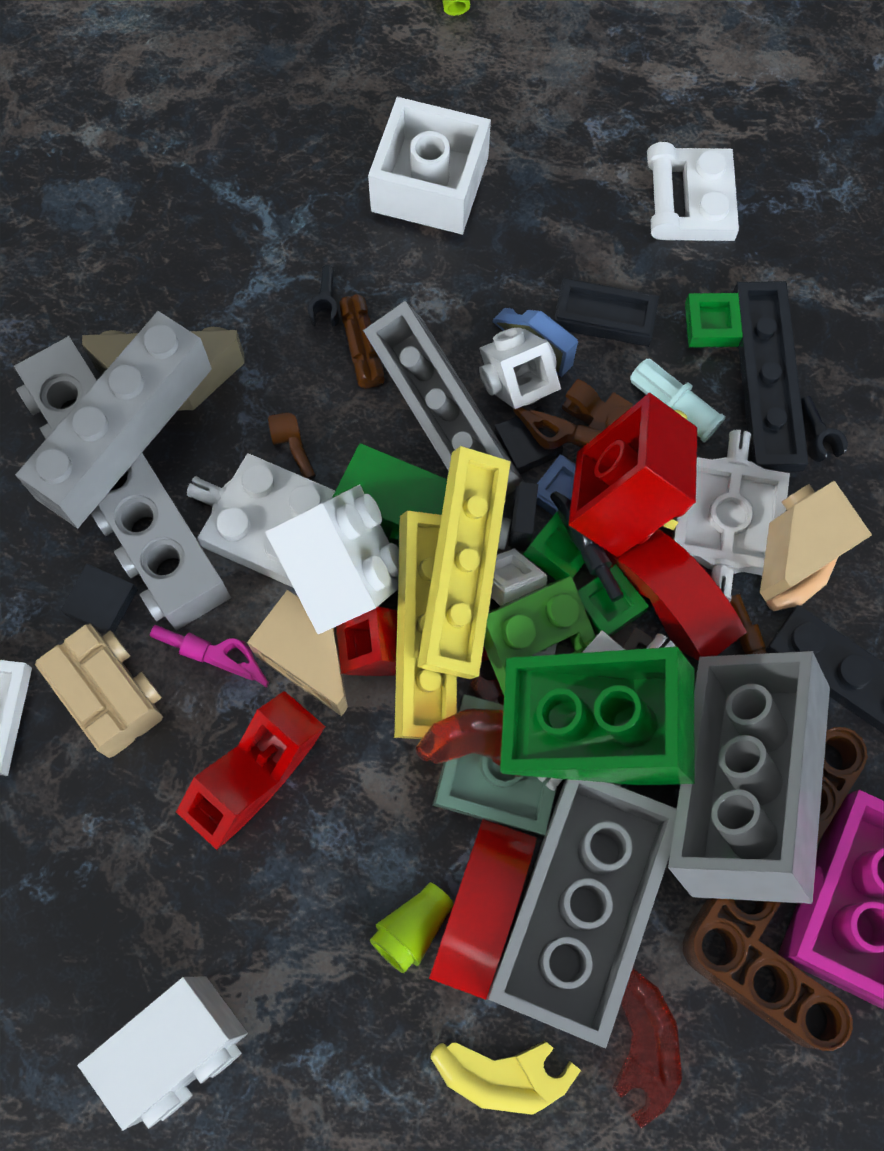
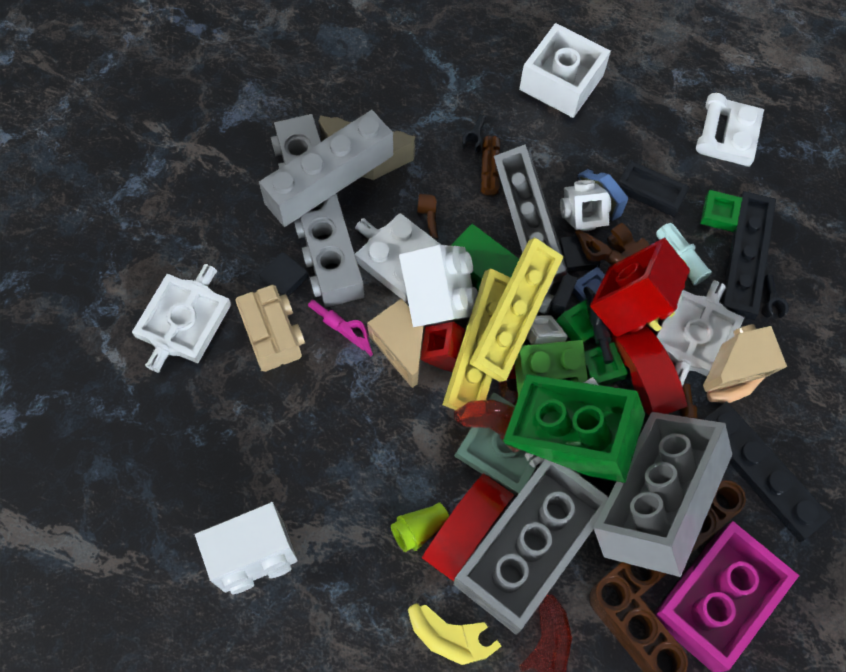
camera: 15 degrees right, 5 degrees down
(247, 777) = (339, 407): red brick -> none

